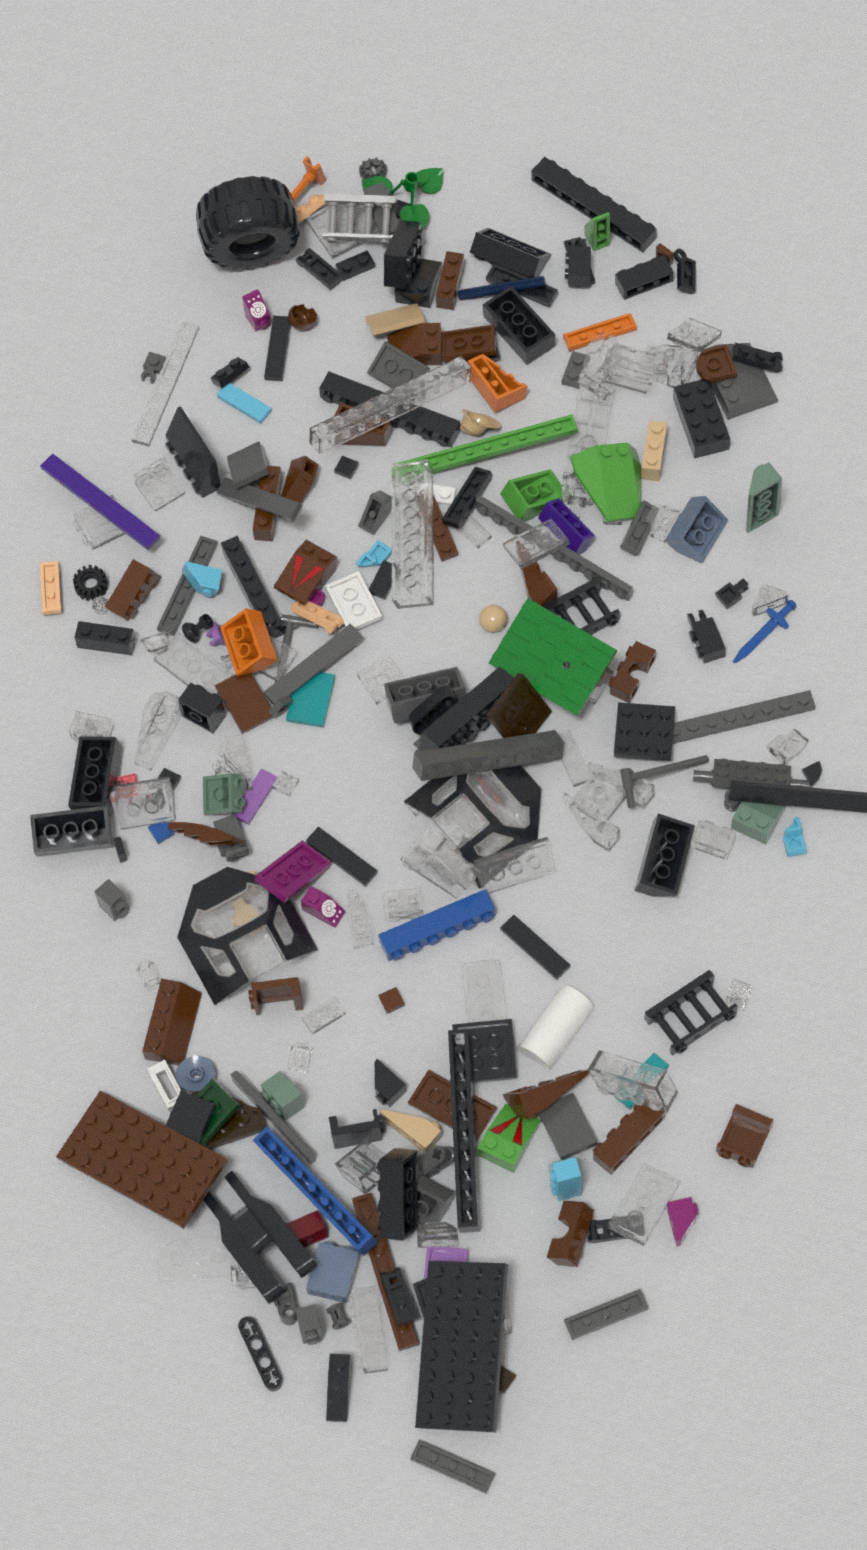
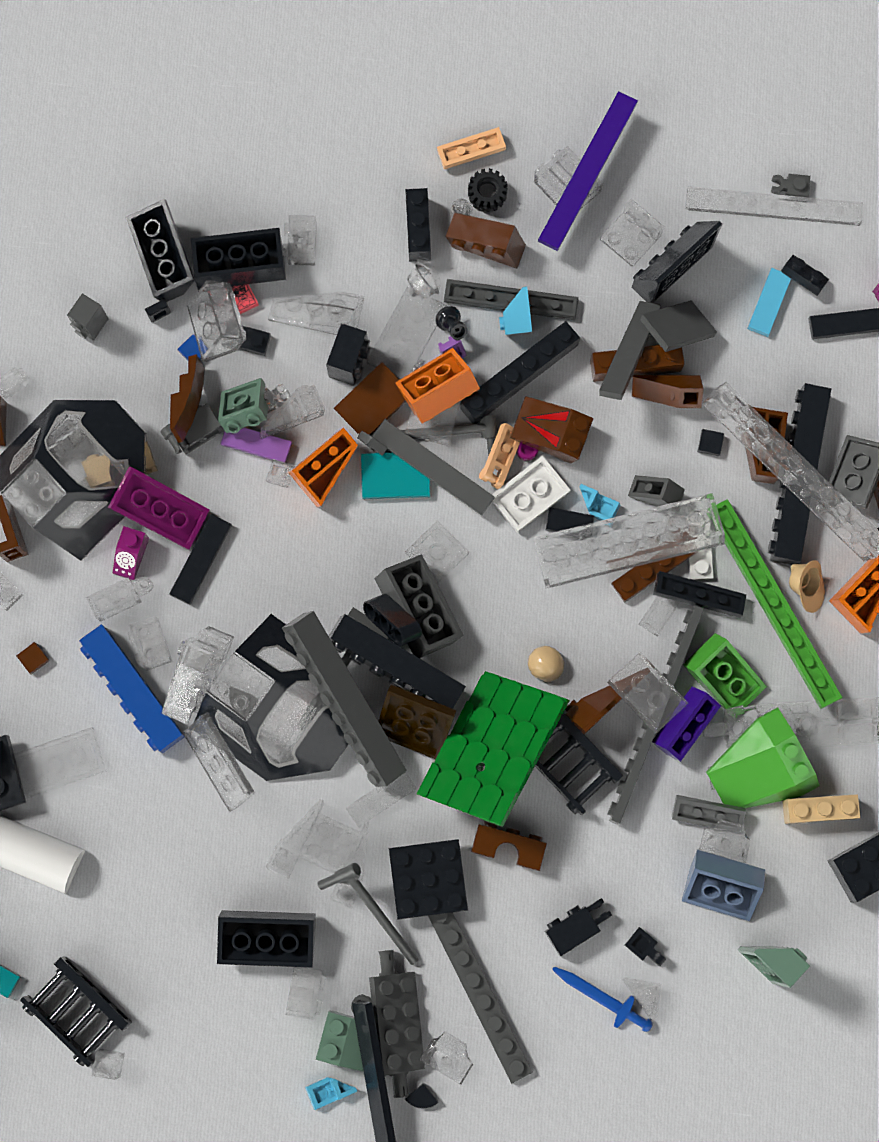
camera: 70 degrees right, 15 degrees up
(290, 745) = (323, 466): none -> orange wedge
(535, 947) = (128, 808): black tile -> none

